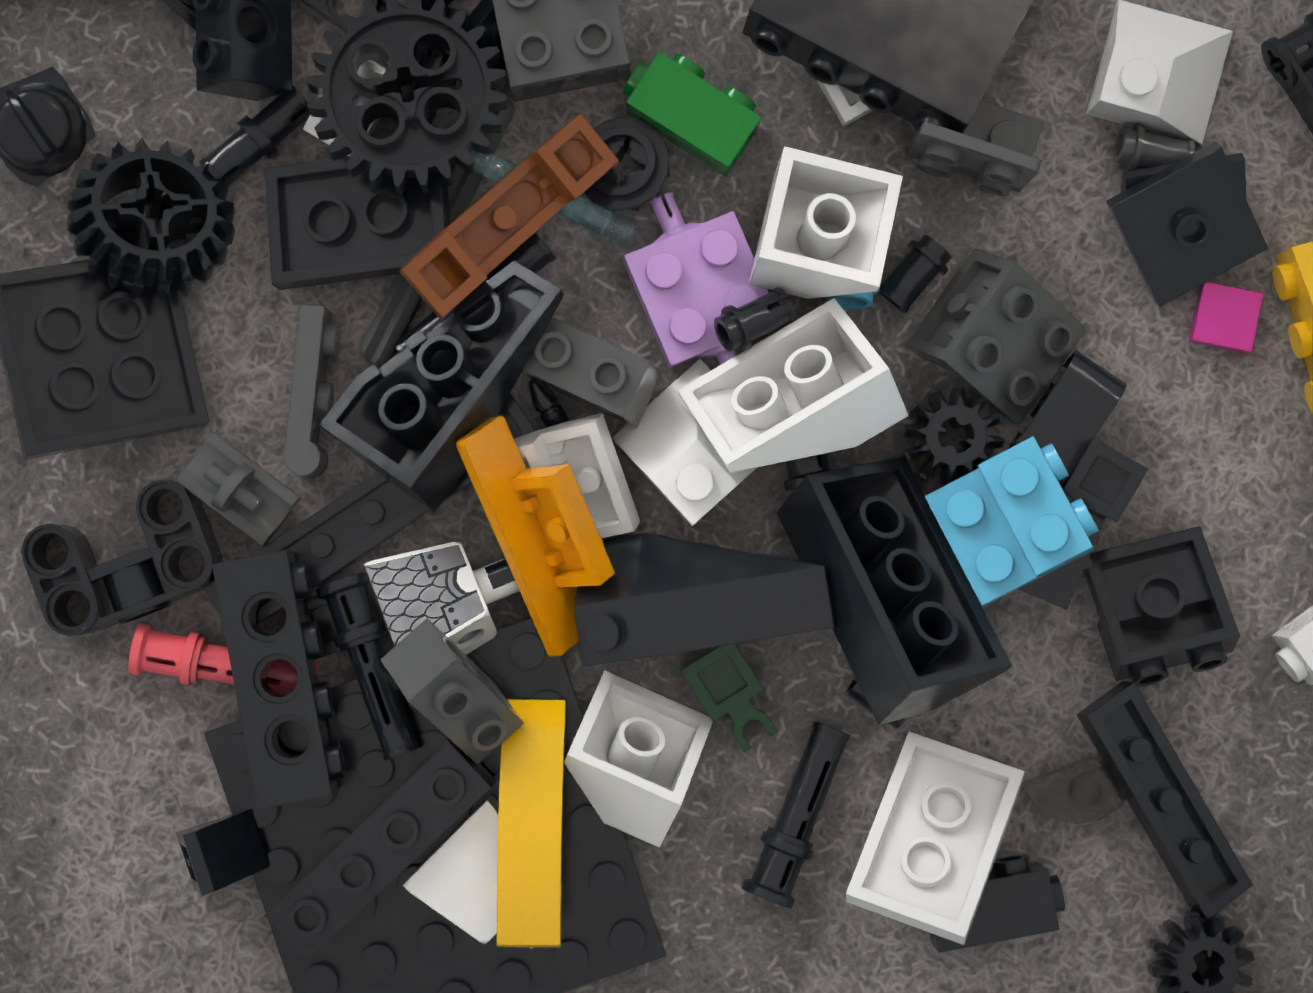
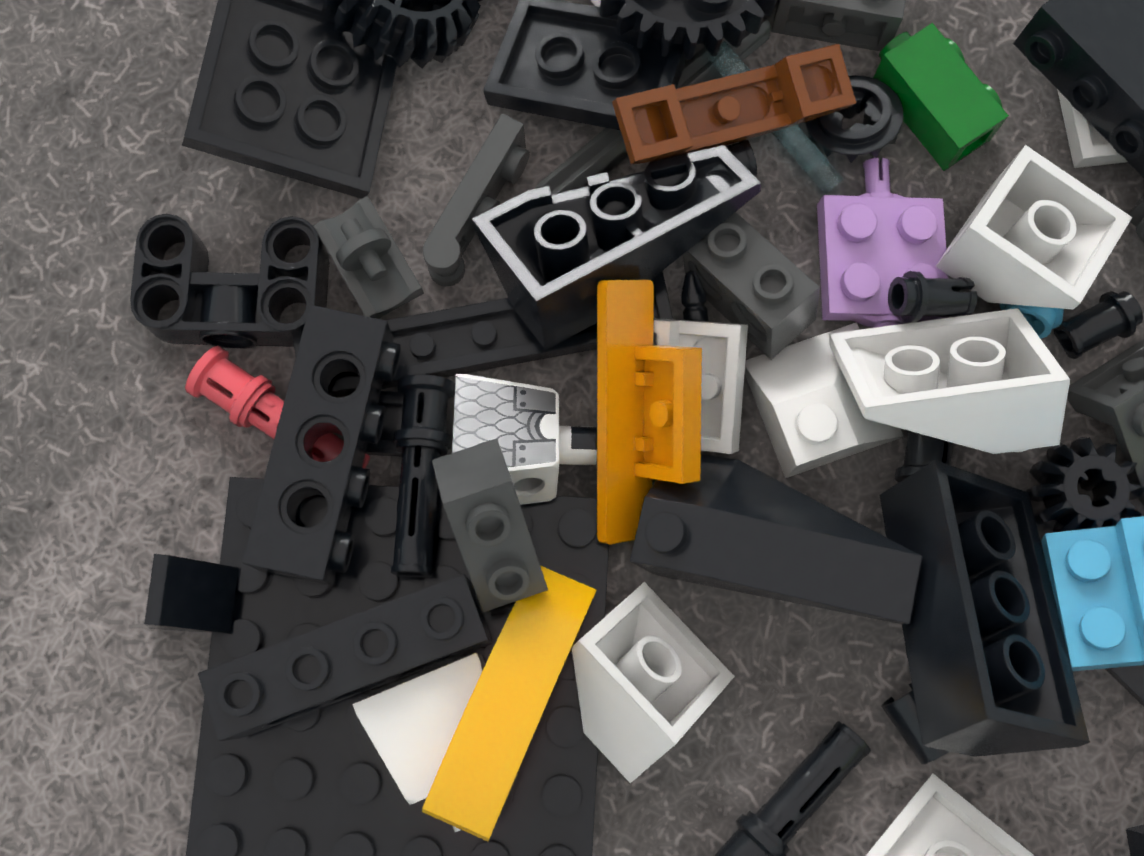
camera: 30 degrees right, 10 degrees down
(725, 686) = (762, 644): dark green plate -> none

